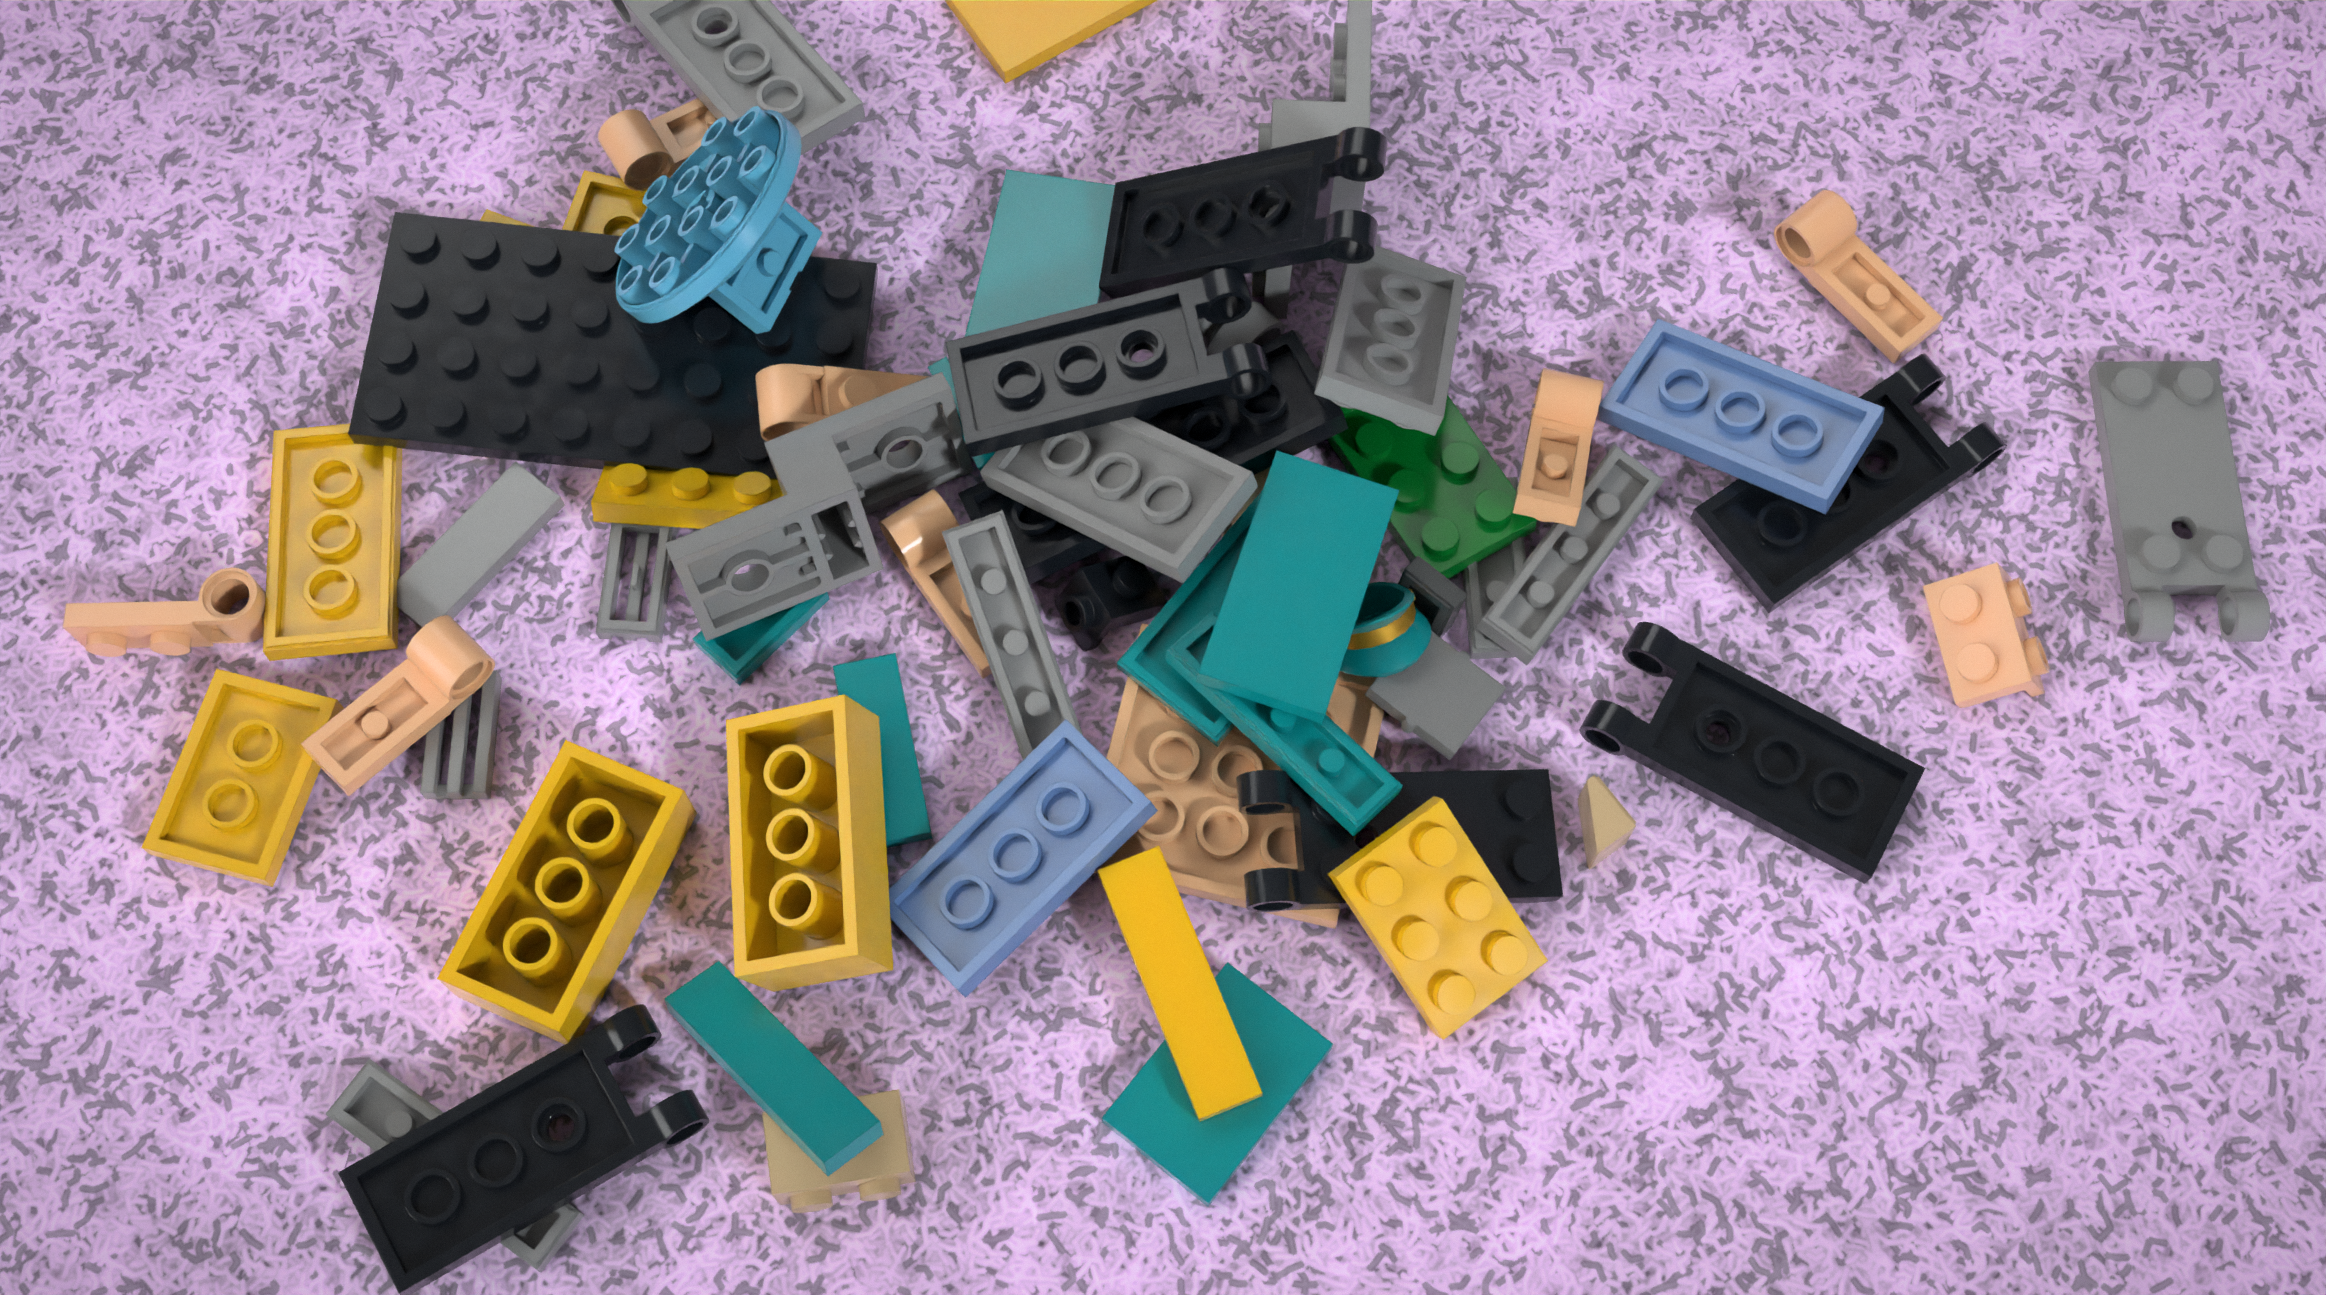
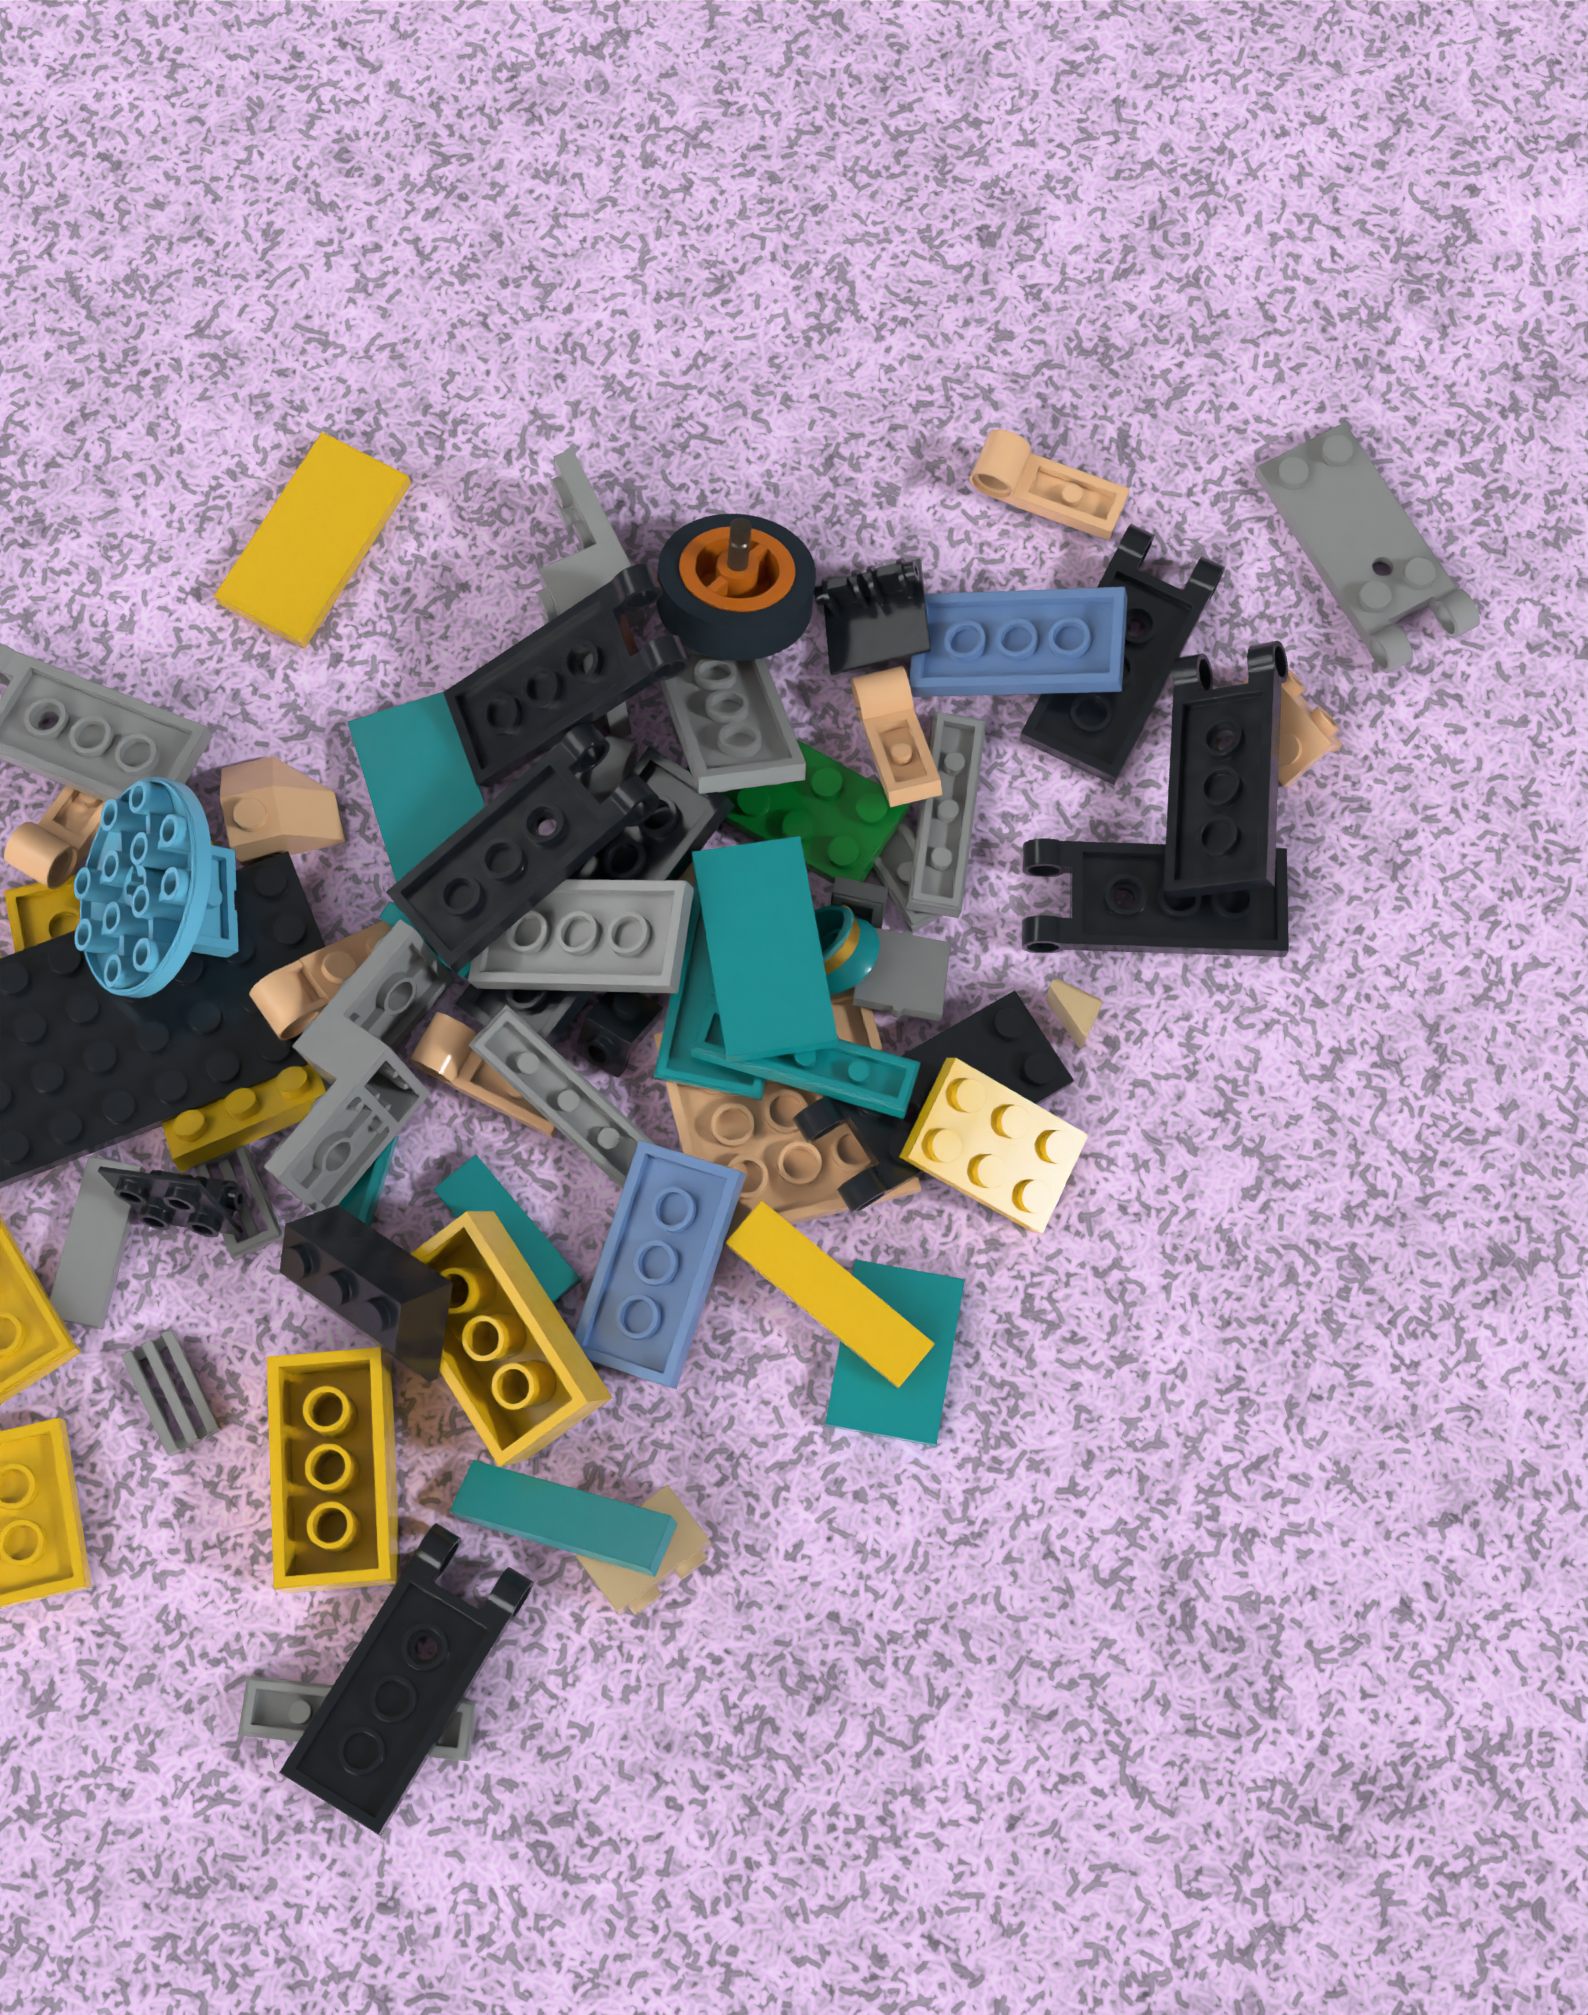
camera: 25 degrees left, 5 degrees up
(403, 706) = (115, 1397): light nougat plate -> none
(573, 543) = (179, 1200): none -> black hinge
(706, 721) = (370, 1285): none -> black slope
(889, 219) = (276, 811): none -> light nougat slope
(1469, 218) = (736, 586): none -> wheel
(1601, 316) = (874, 615): none -> black hinge
(1884, 680) = (1225, 798): none -> black hinge

